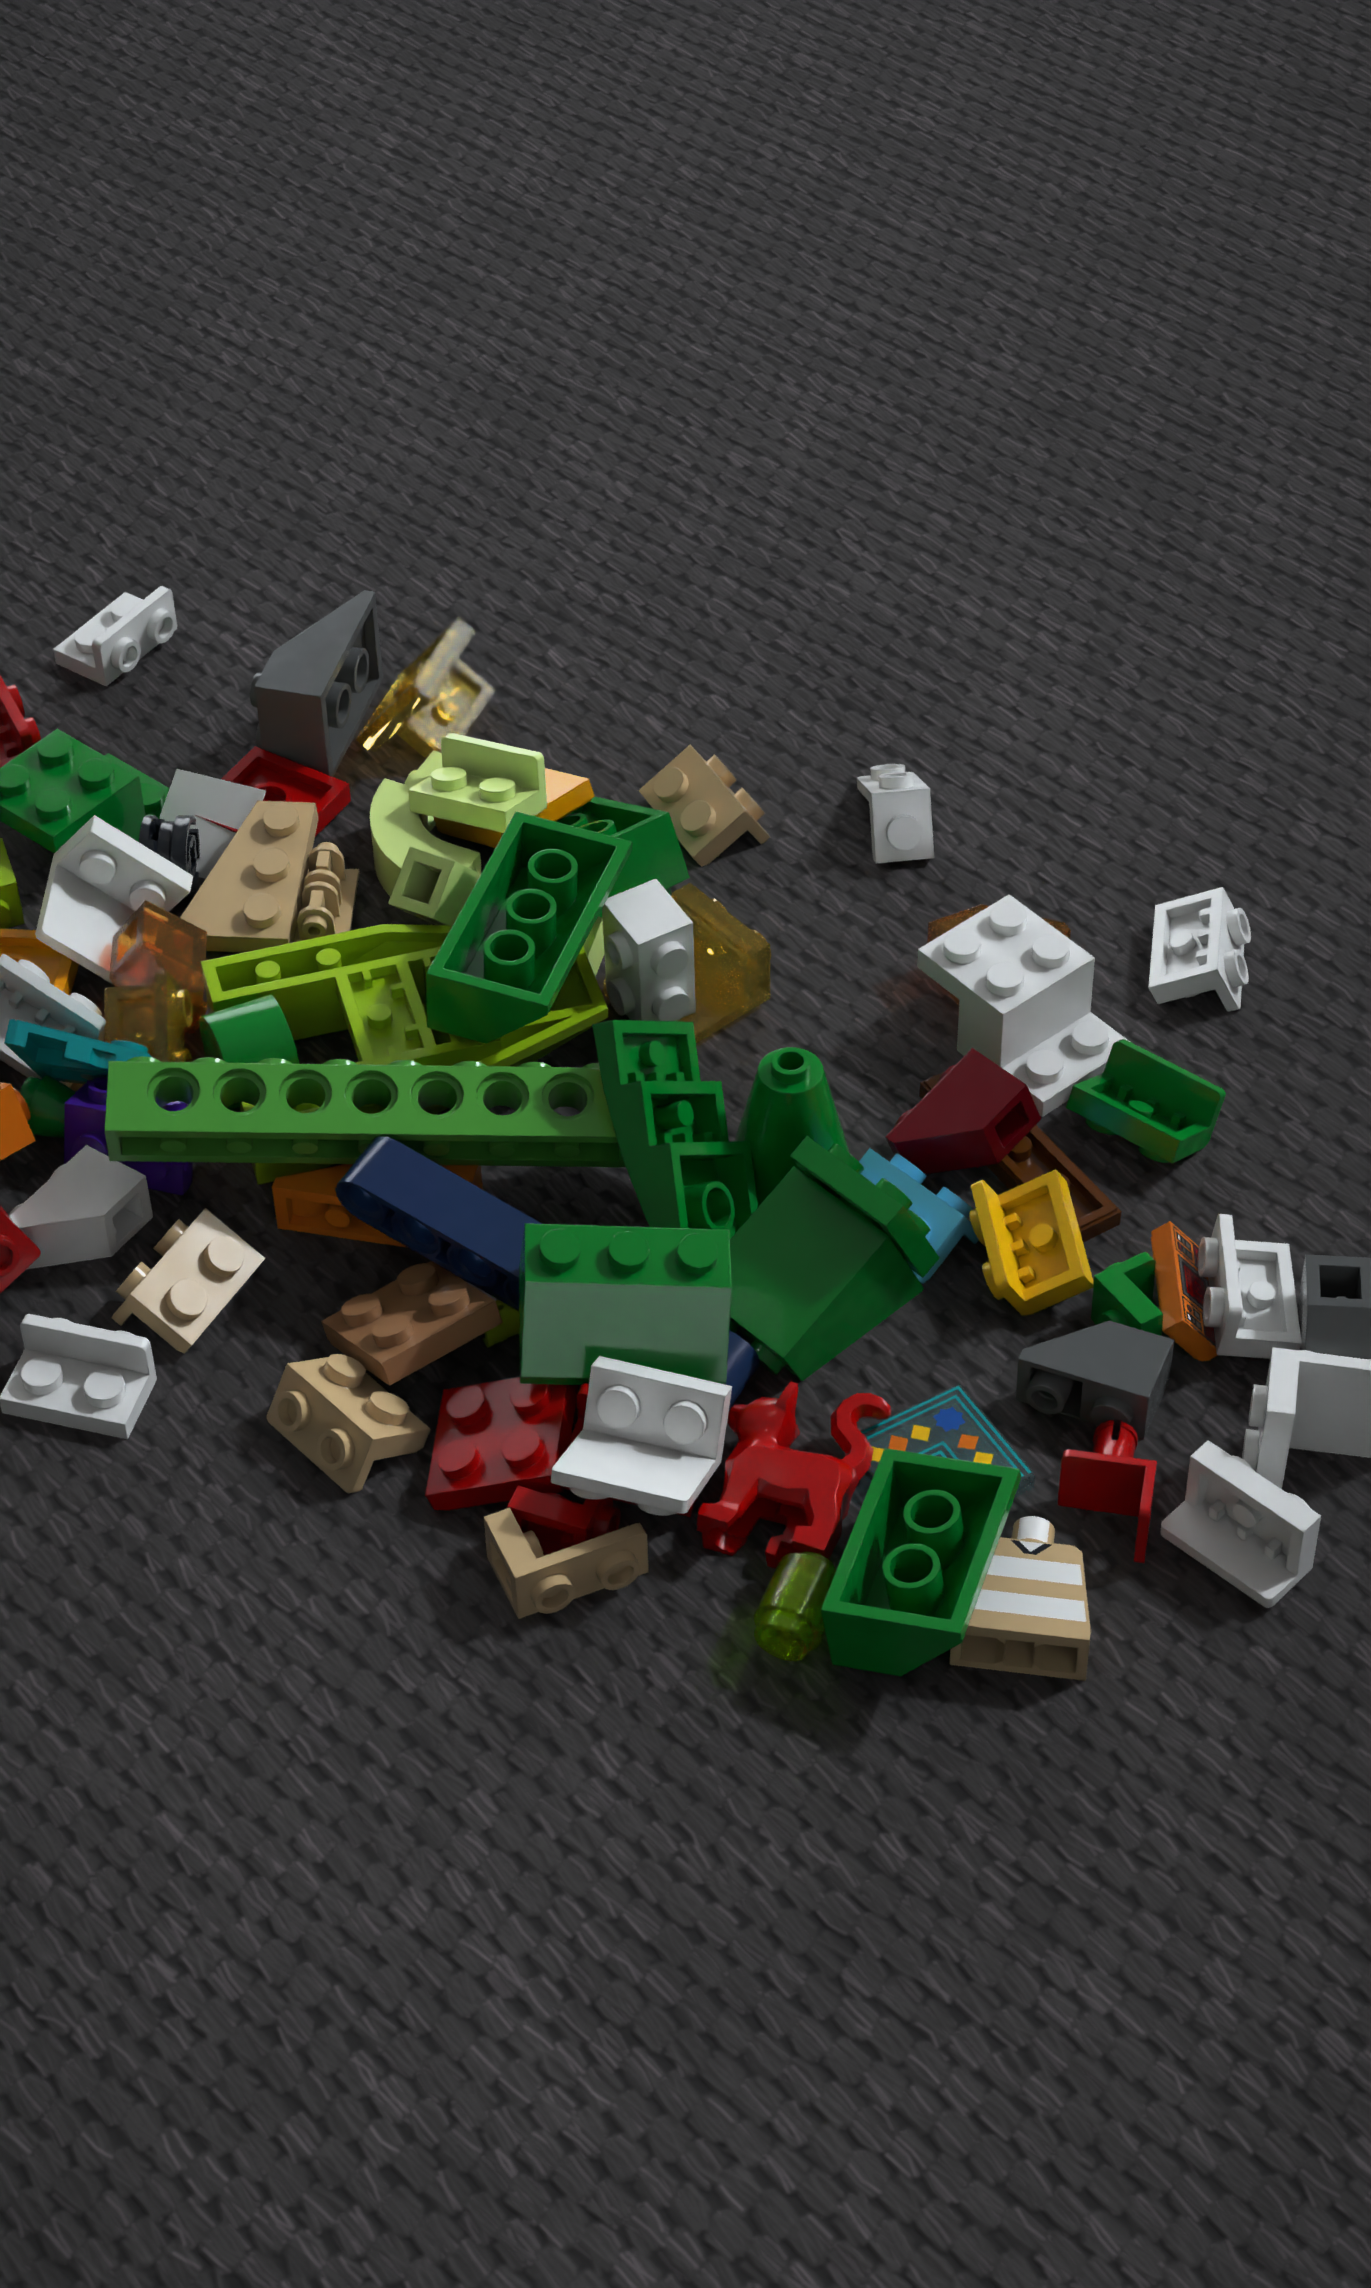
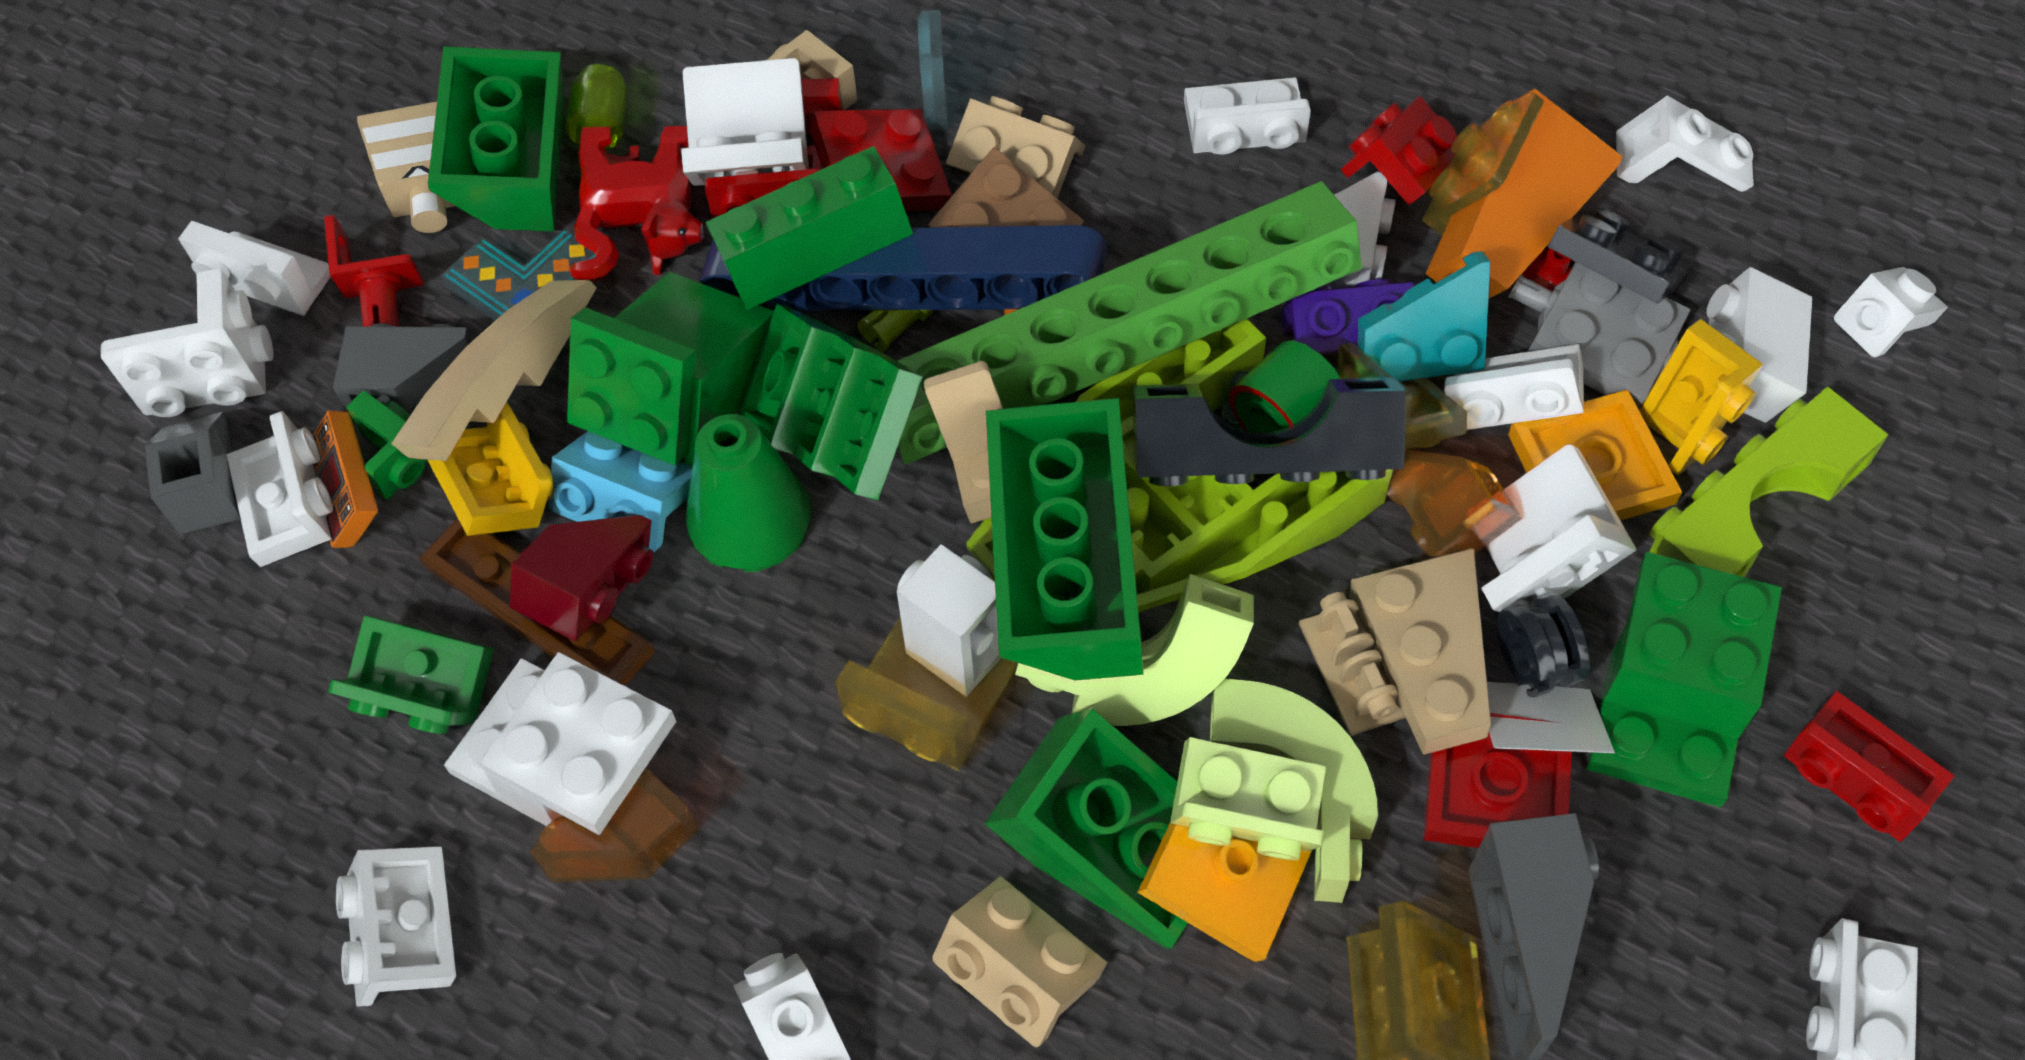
camera: 160 degrees right, 15 degrees up
(190, 1282) = (1214, 194): tan bracket -> none
(300, 964) = (1350, 429): none -> black arch
(399, 1498) = (932, 70): none -> clear light blue tile
(559, 1032) = (959, 408): none -> tan bracket
(994, 1308) = (479, 381): none -> tan slope

